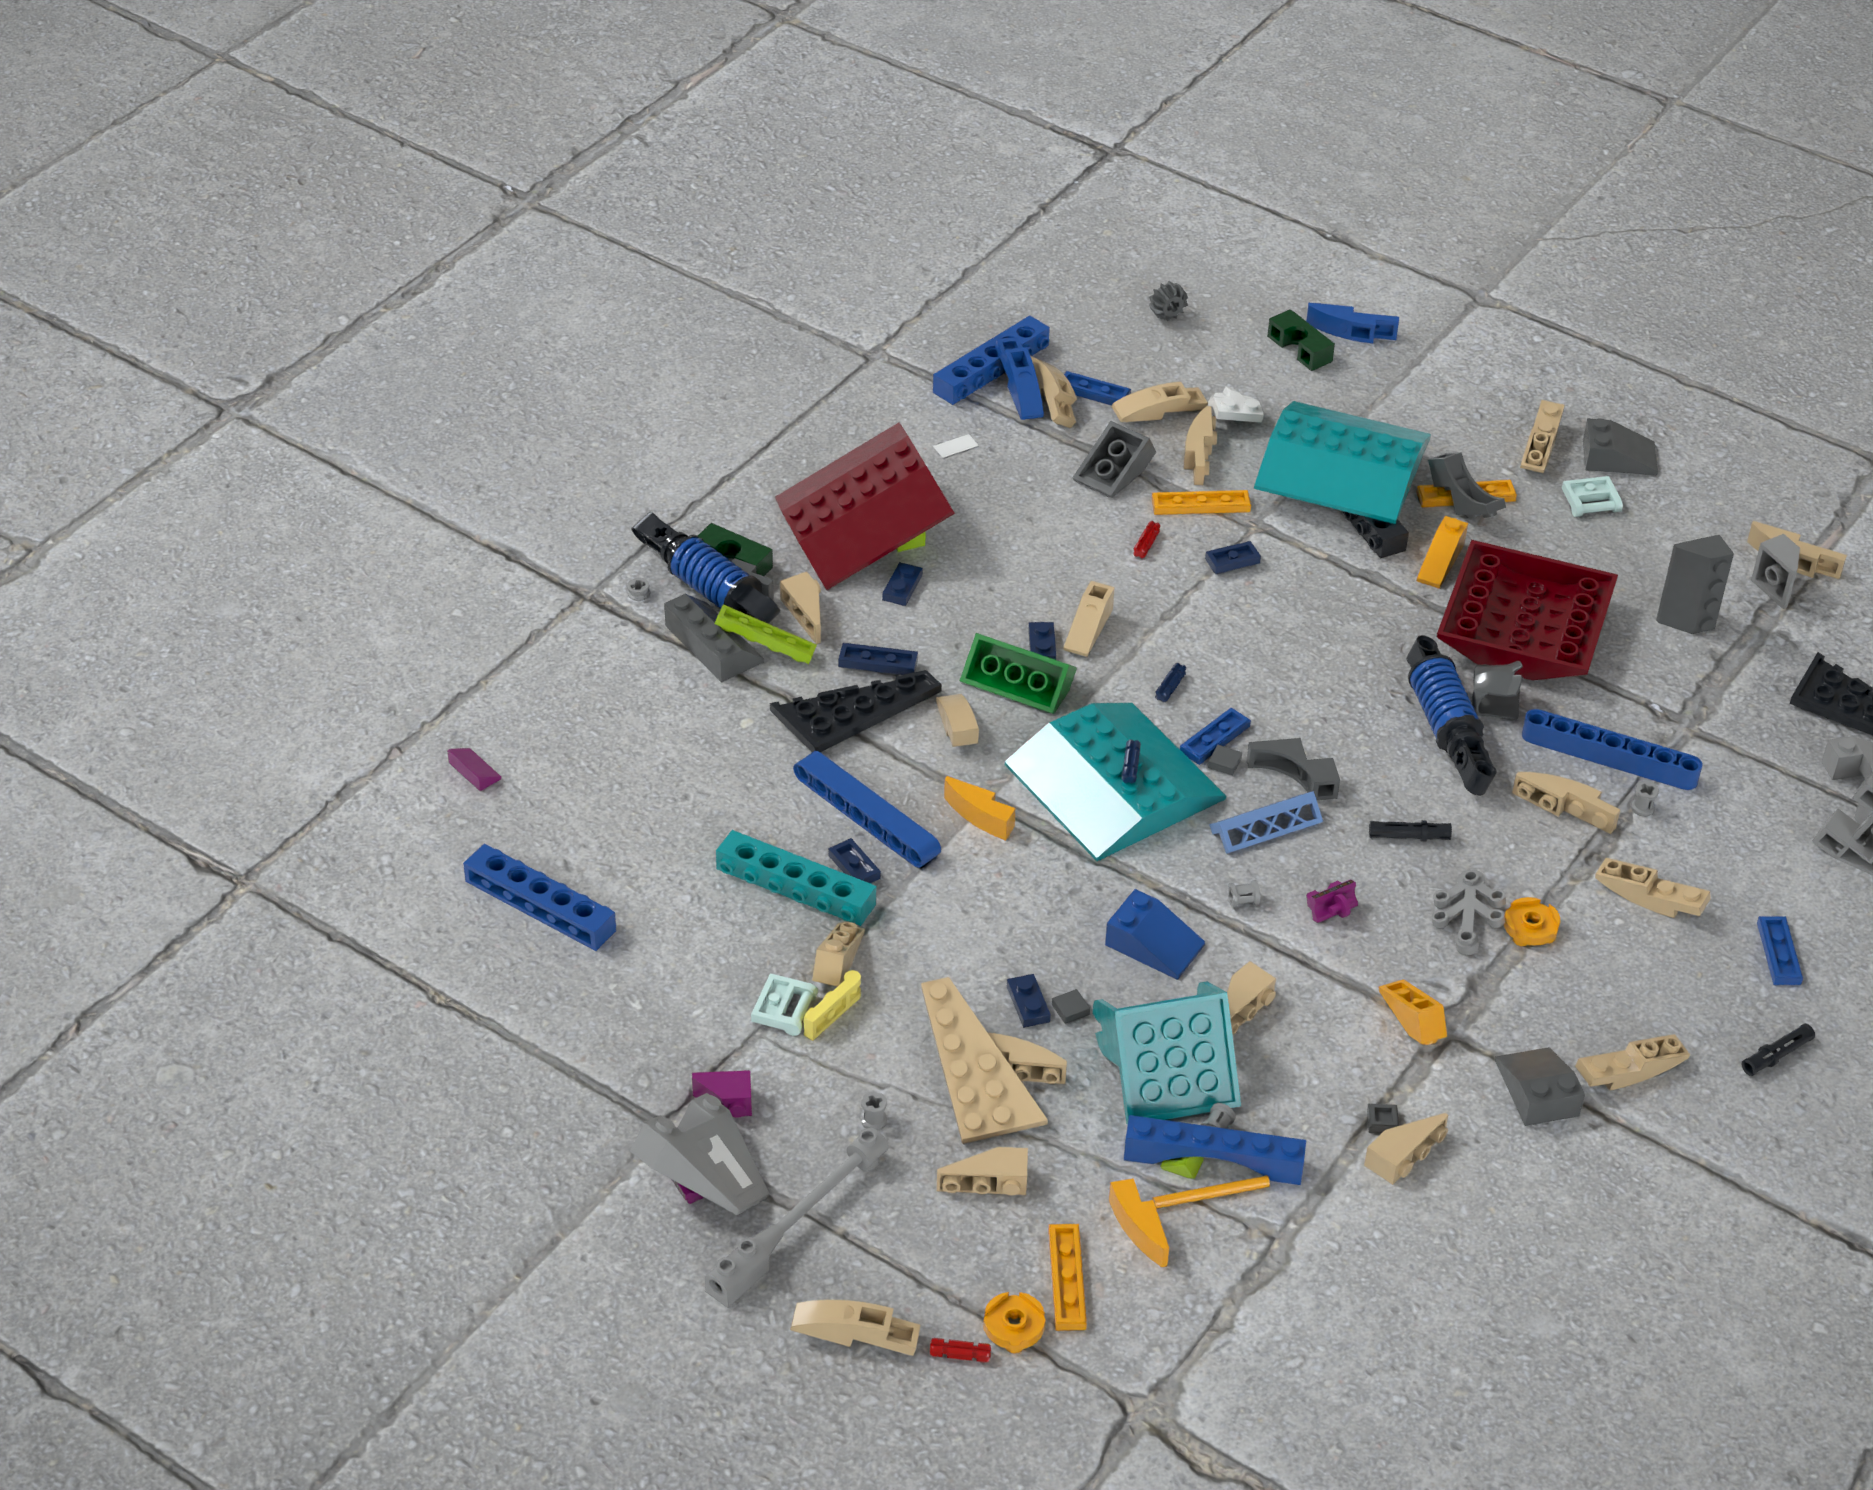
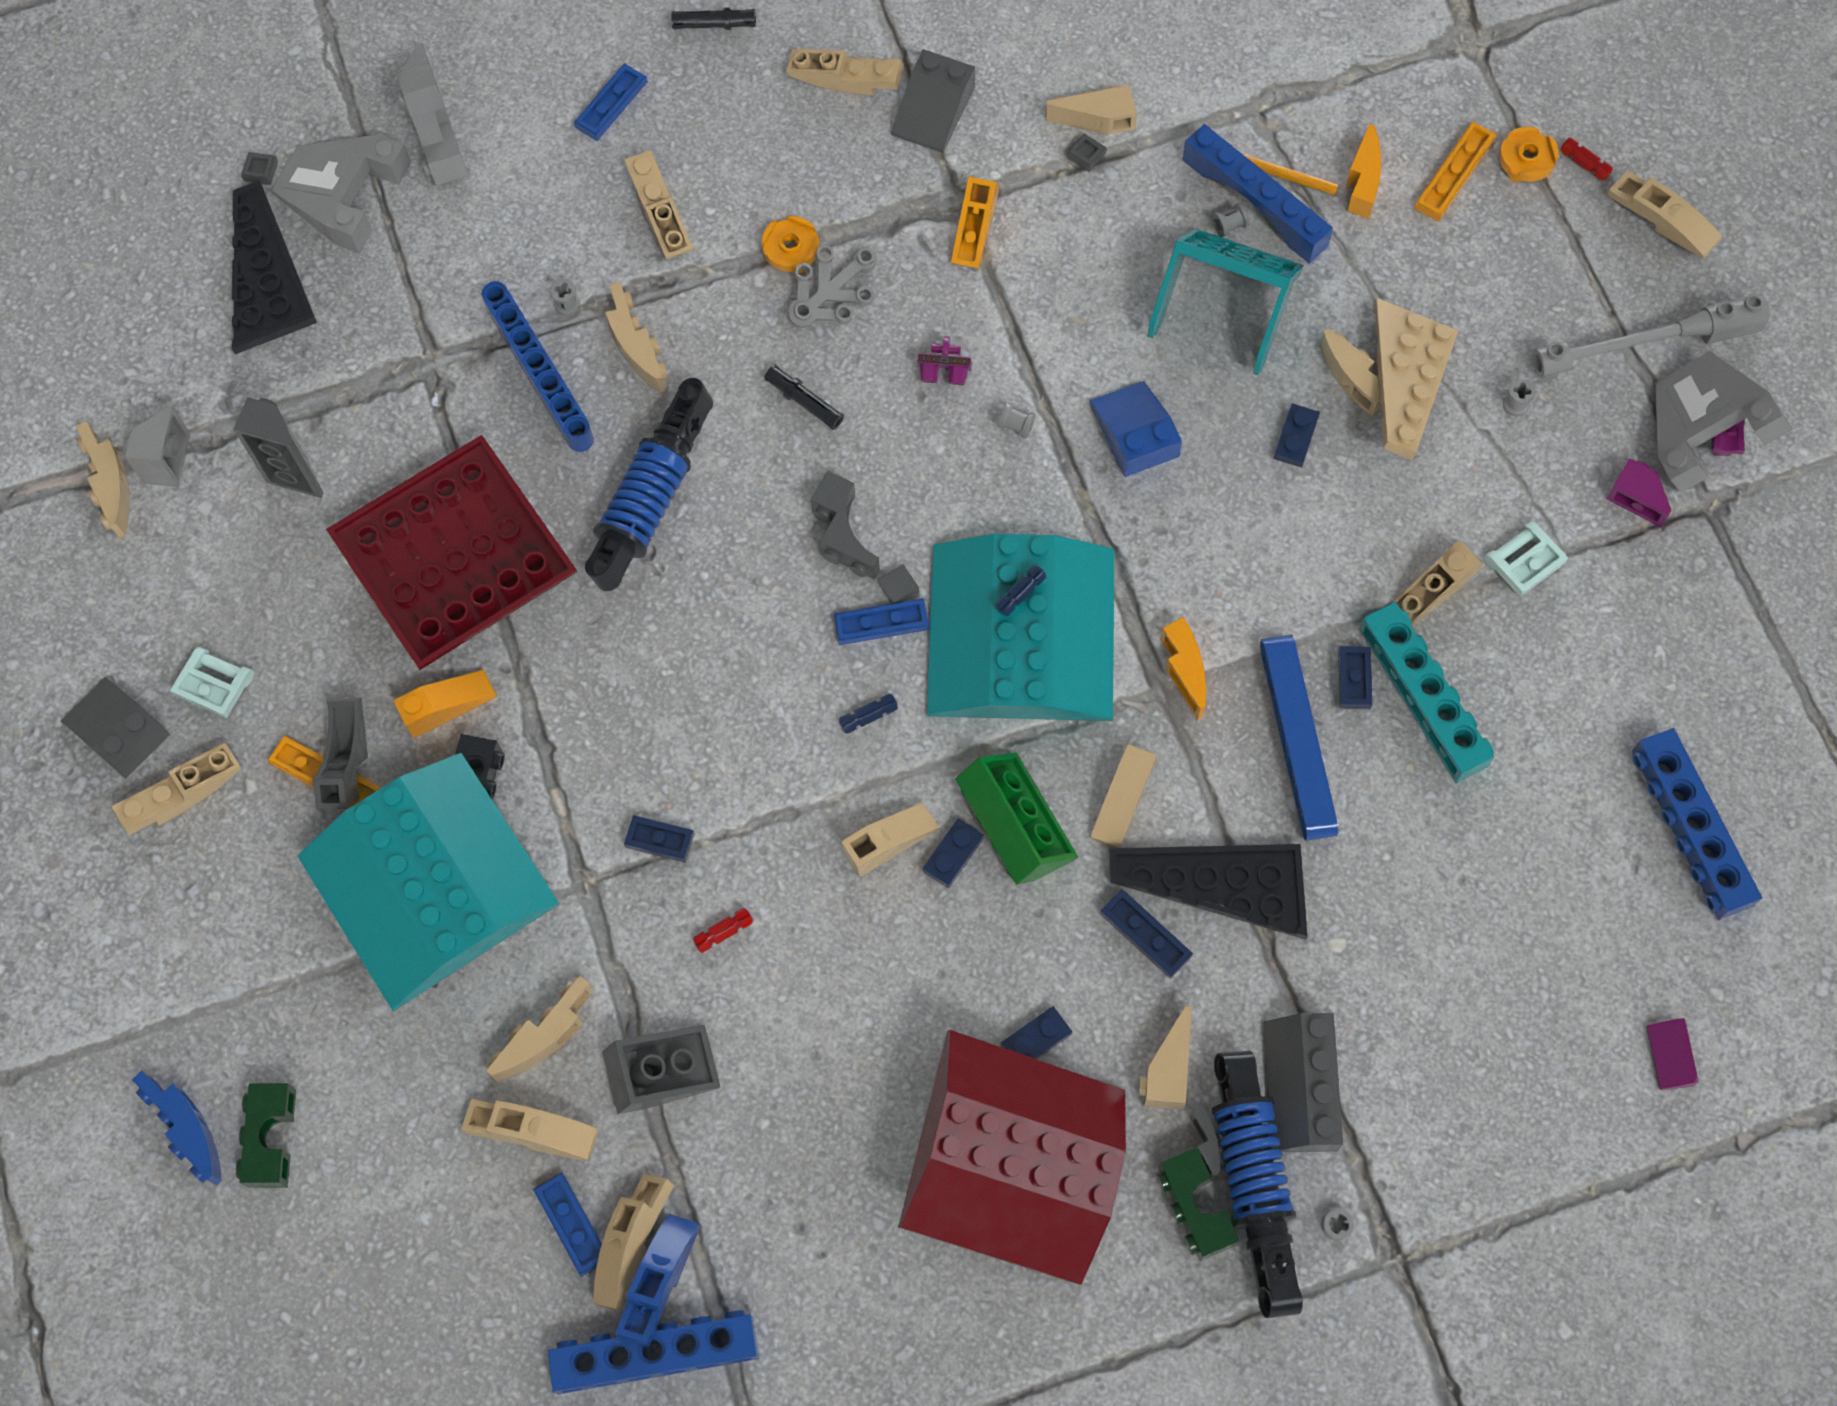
camera: 140 degrees left, 25 degrees up
(765, 634) = (1254, 1031): lime plate -> none
(833, 1005) = (1485, 525): light yellow plate -> none
(955, 445) = (806, 1238): white sticker -> none
(993, 1172) = (1456, 283): tan slope -> none
(1070, 1006) = (1263, 406): dark grey tile -> none
(1168, 301) = (360, 1307): dark grey gear -> none
(1201, 502) = (615, 951): light orange tile -> none
(1234, 406) = (449, 1069): white plate -> none
(1248, 992) = (1108, 317): tan slope -> none
(1264, 812) = (924, 489): medium blue fence -> none
(1497, 690) = (574, 487): dark grey piece -> none

